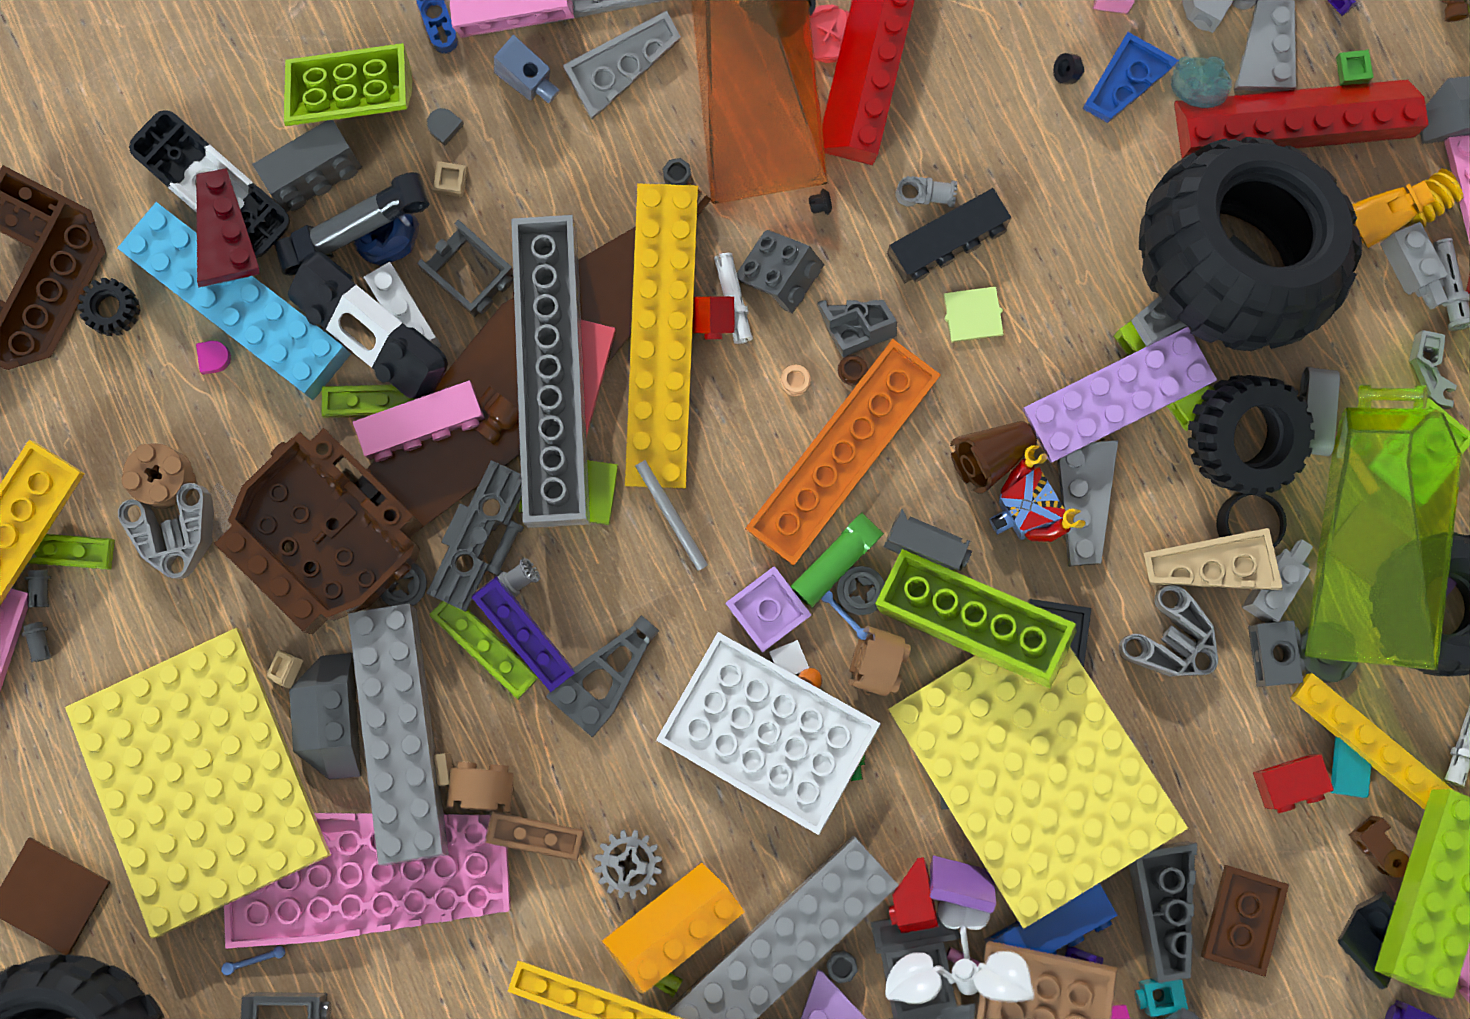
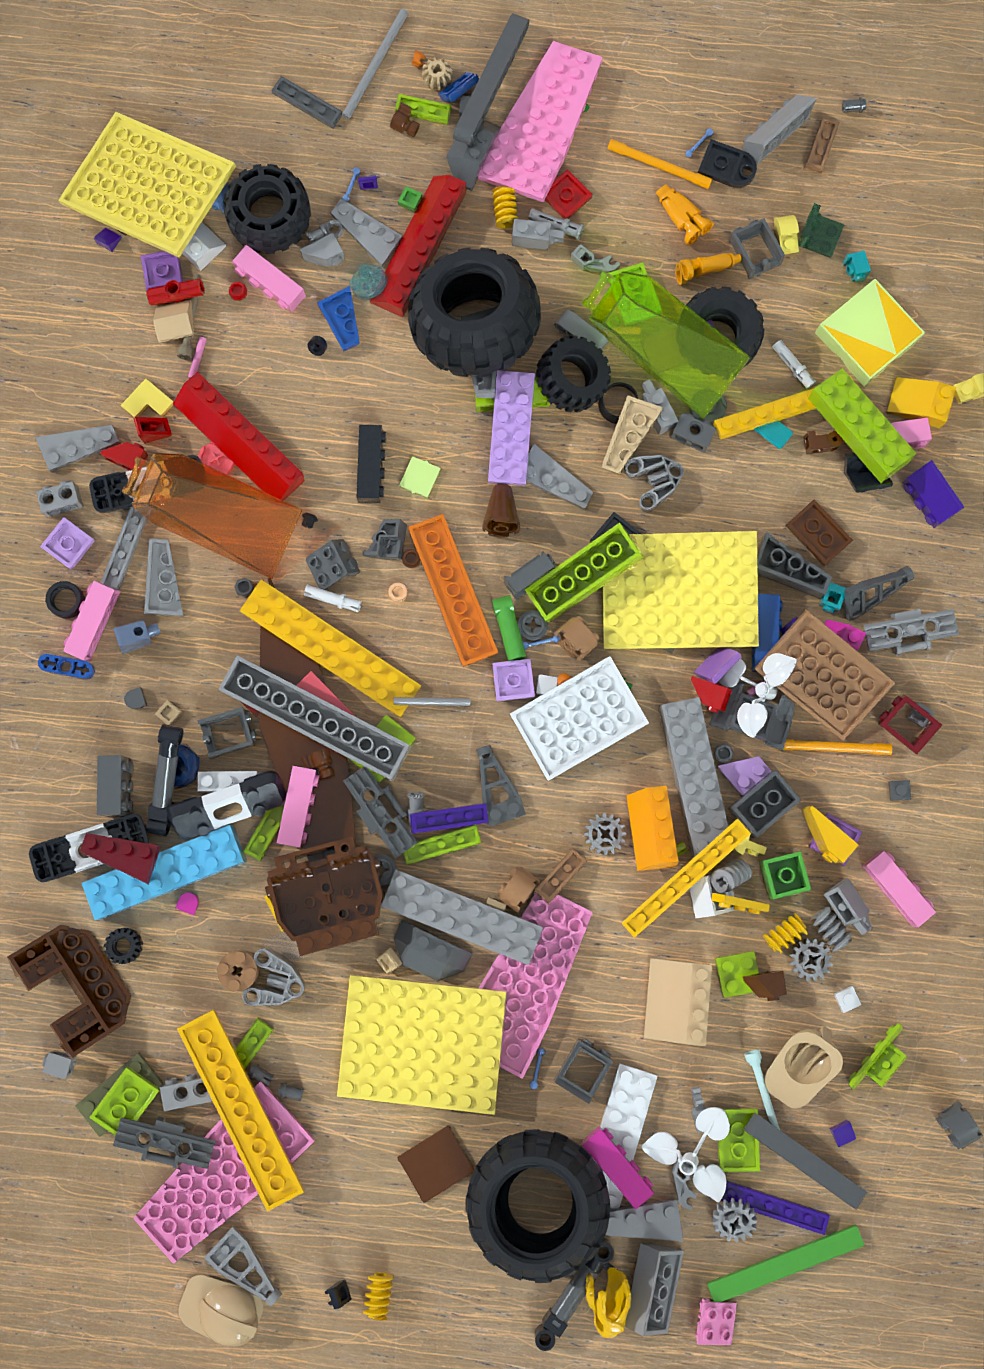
camera: 60 degrees left, 0 degrees up
(347, 84) = (82, 737): lime slope -> none
(713, 316) = (337, 614): red brick -> none
(927, 191) = (338, 460): light grey connector -> none
(1032, 505) = (541, 508): torso -> none
(1293, 782) = (763, 465): red brick -> none
(1389, 211) = (499, 230): light orange piece -> none

